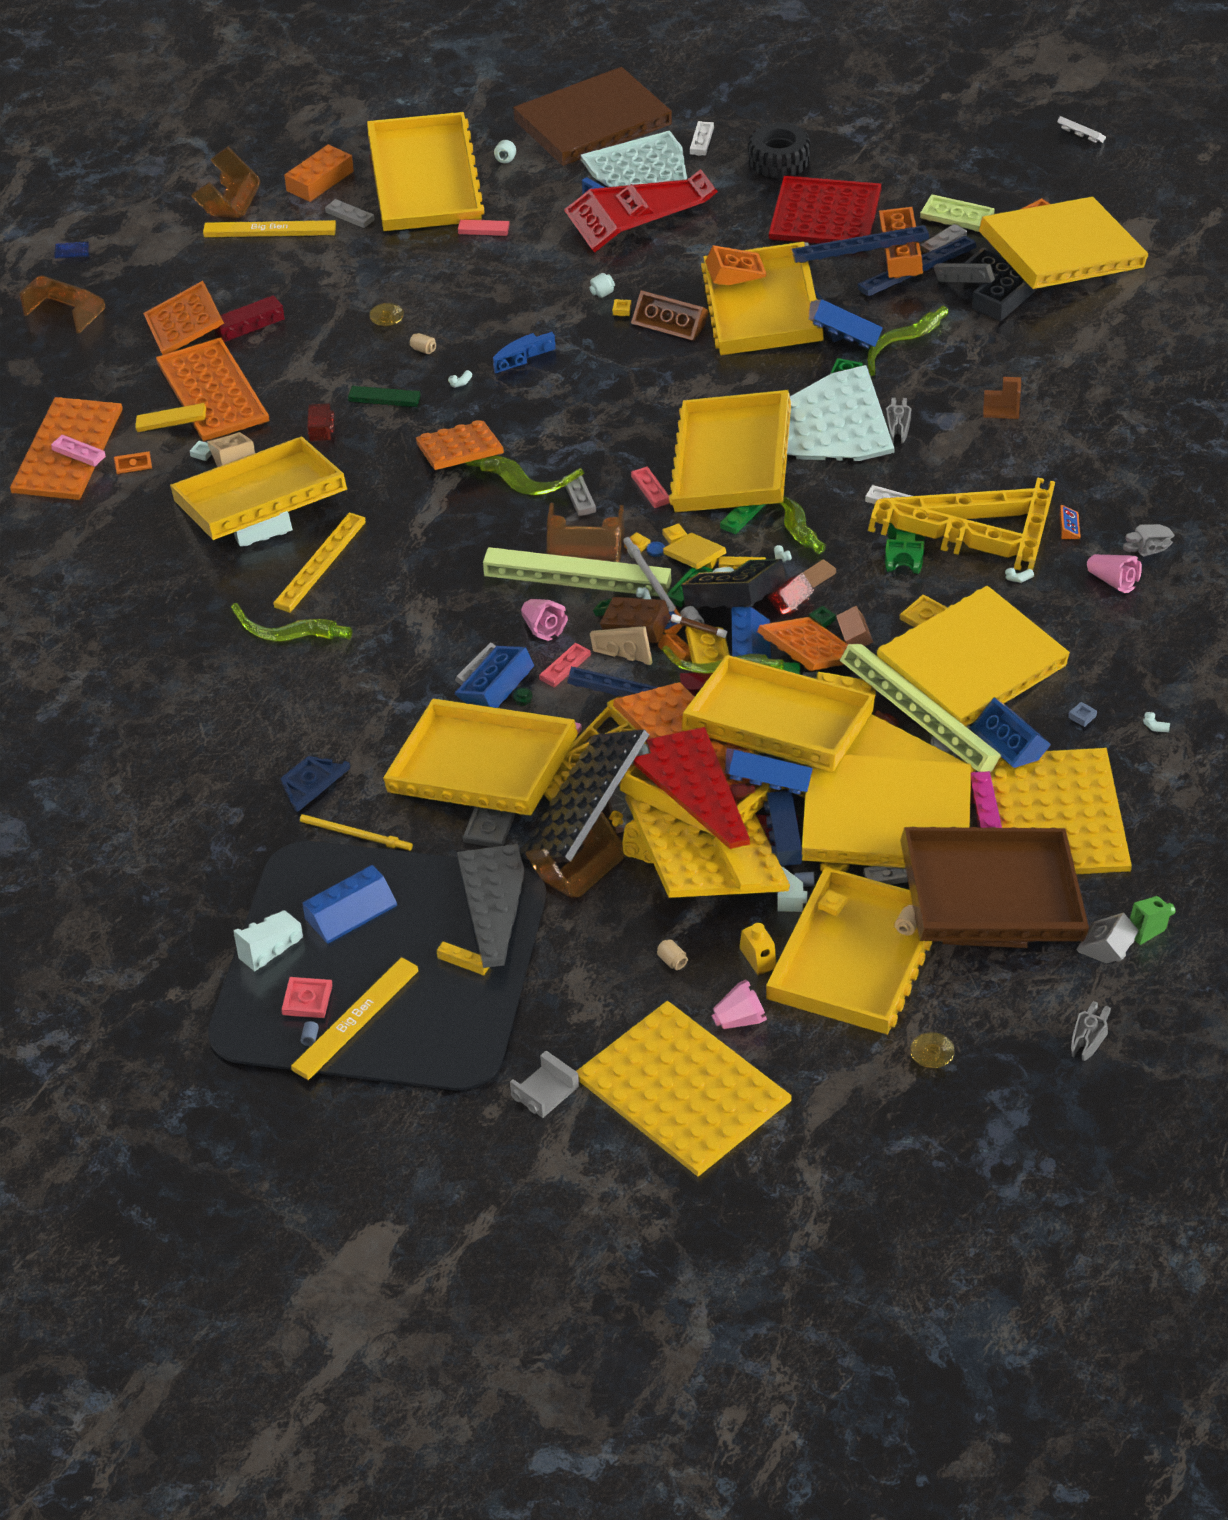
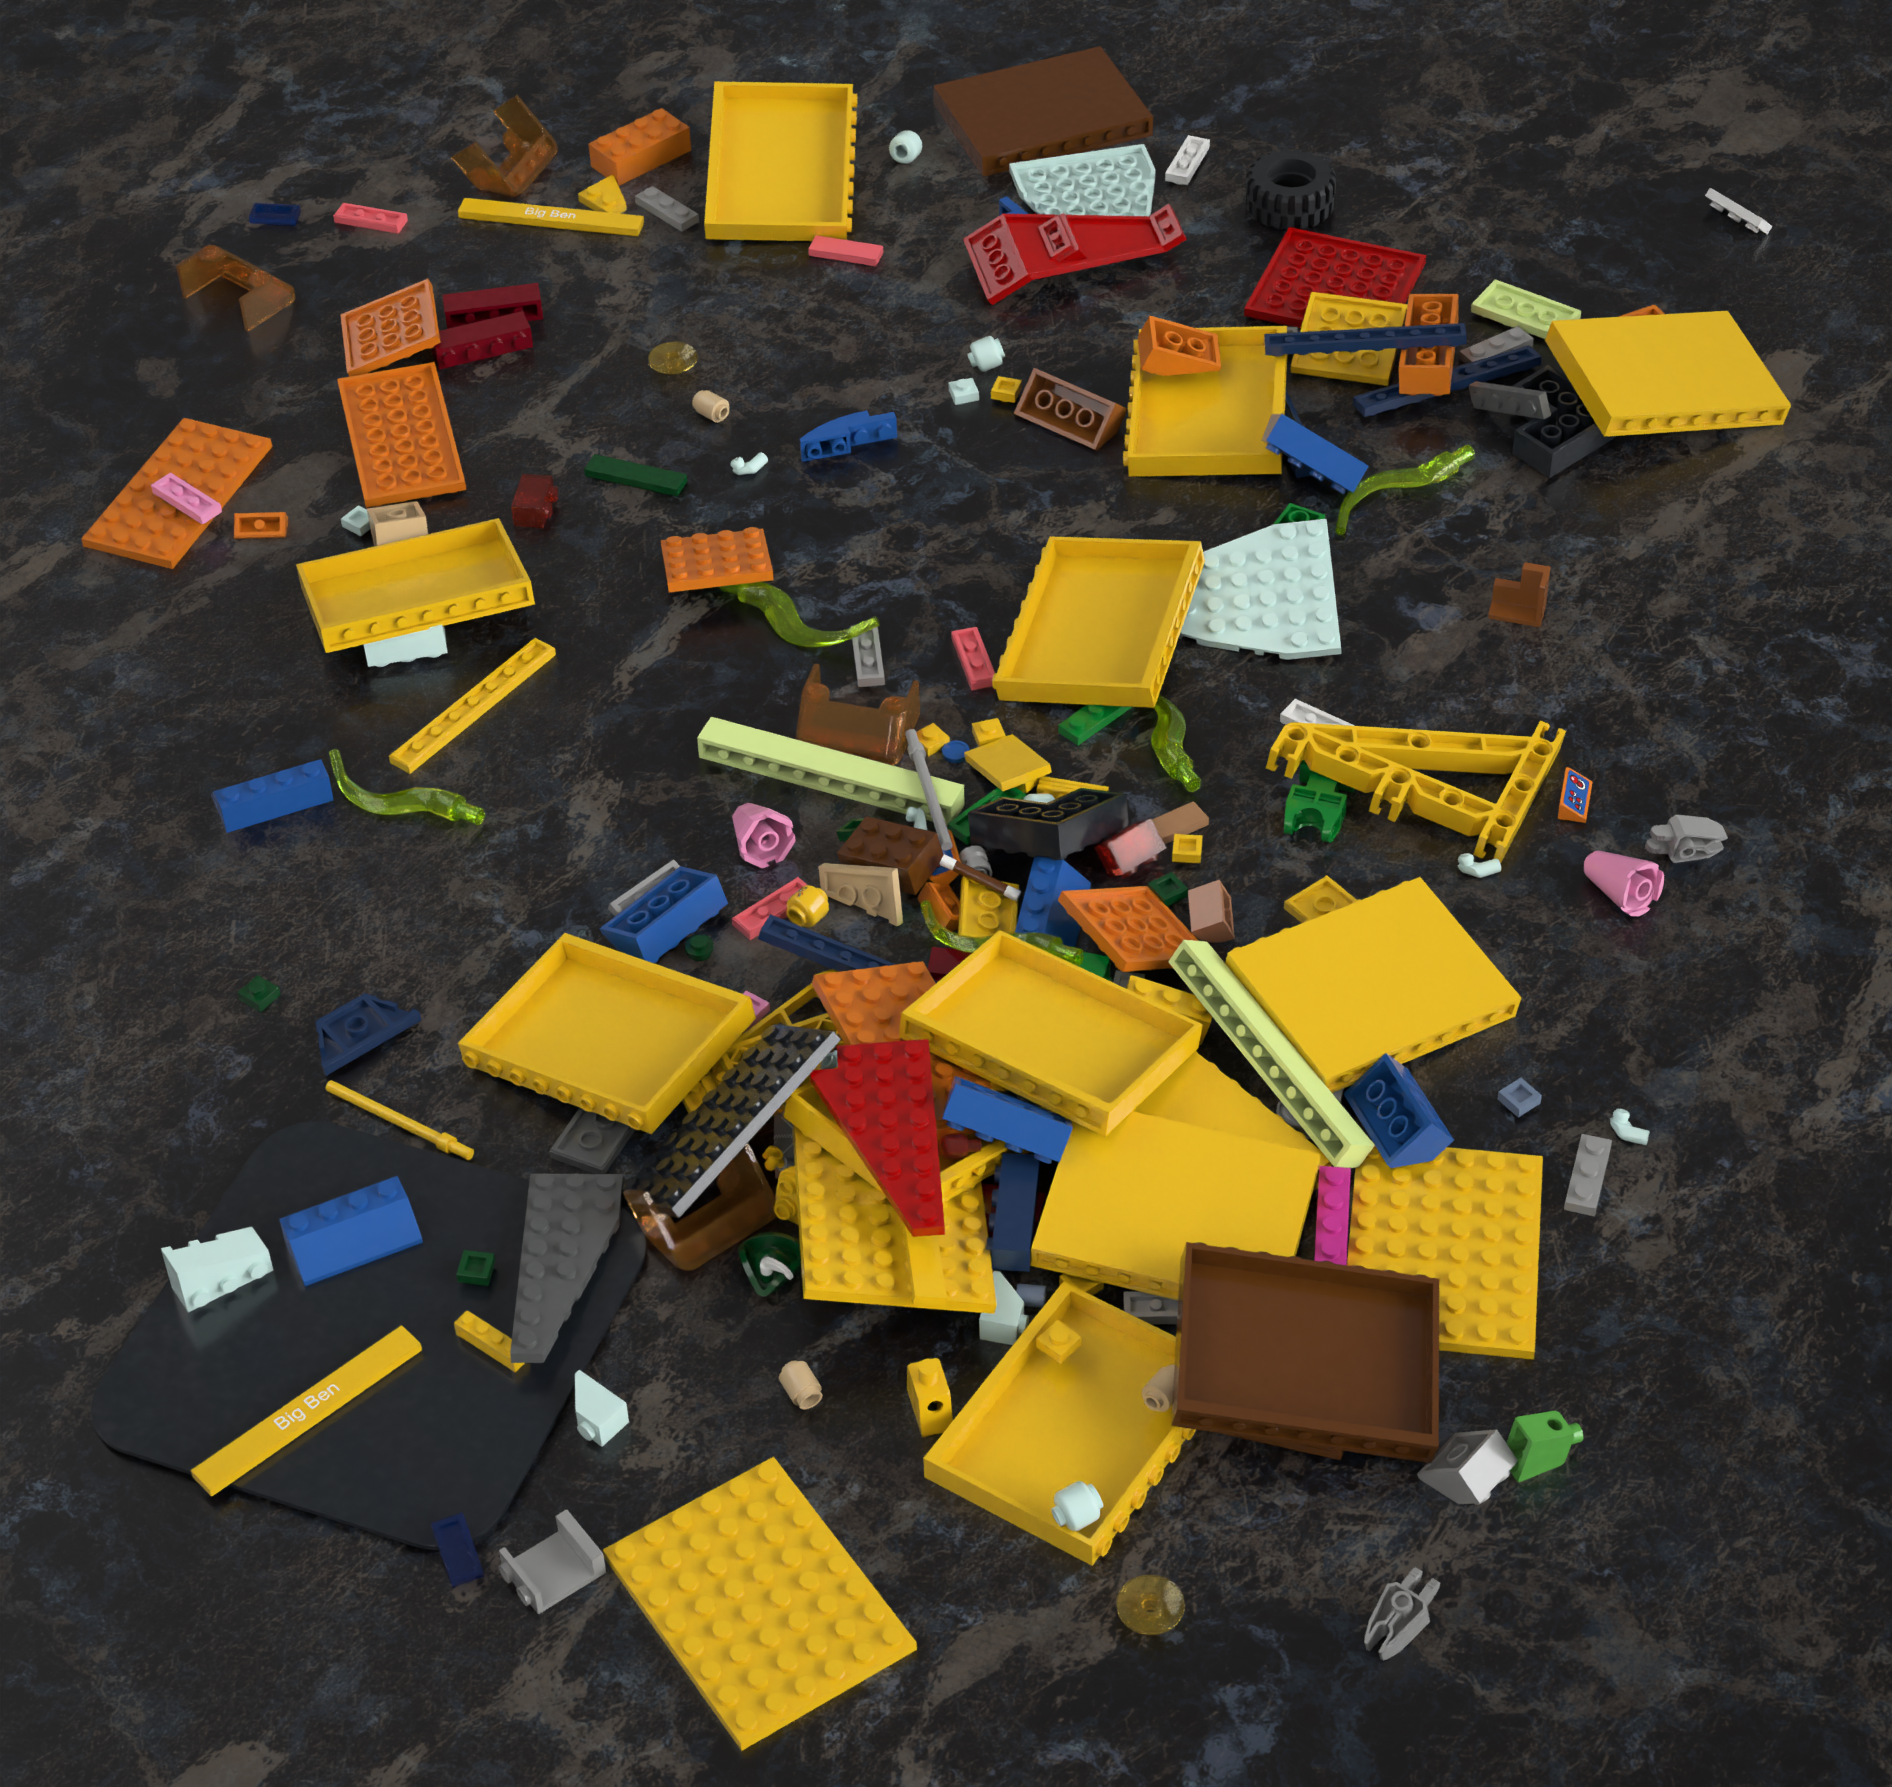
camera: 10 degrees right, 0 degrees up
(141, 244) = (370, 218): none -> coral tile
(170, 417) = (329, 467): yellow tile -> none
(202, 638) = (273, 795): none -> blue slope
(234, 767) = (259, 993): none -> dark green plate
(247, 293) = (491, 303): none -> dark red brick
(303, 210) = (604, 196): none -> yellow wing
(307, 997) = (246, 1366): coral plate -> none
(309, 1033) = (233, 1423): sand blue hinge -> none
(439, 915) = (475, 1267): none -> dark green plate
(480, 1086) = (457, 1550): none -> clear blue tile
(545, 989) = (598, 1410): none -> light aqua slope
(588, 658) = (807, 906): none -> yellow head
(592, 312) = (963, 391): none -> light aqua plate
(631, 882) = (770, 1260): none -> dark green hat
(739, 1008) = (874, 1488): bright pink cone -> none
(780, 554) = (1133, 785): light aqua arm -> none
(827, 589) = (1187, 848): none -> yellow plate
(840, 228) = (1342, 313): none -> yellow plate
(873, 997) = (1077, 1506): none -> light aqua head
(888, 718) = (1223, 1062): clear red cylinder -> none
(898, 419) = (1359, 605): light grey hinge -> none
(1137, 755) = (1588, 1175): none -> light grey plate

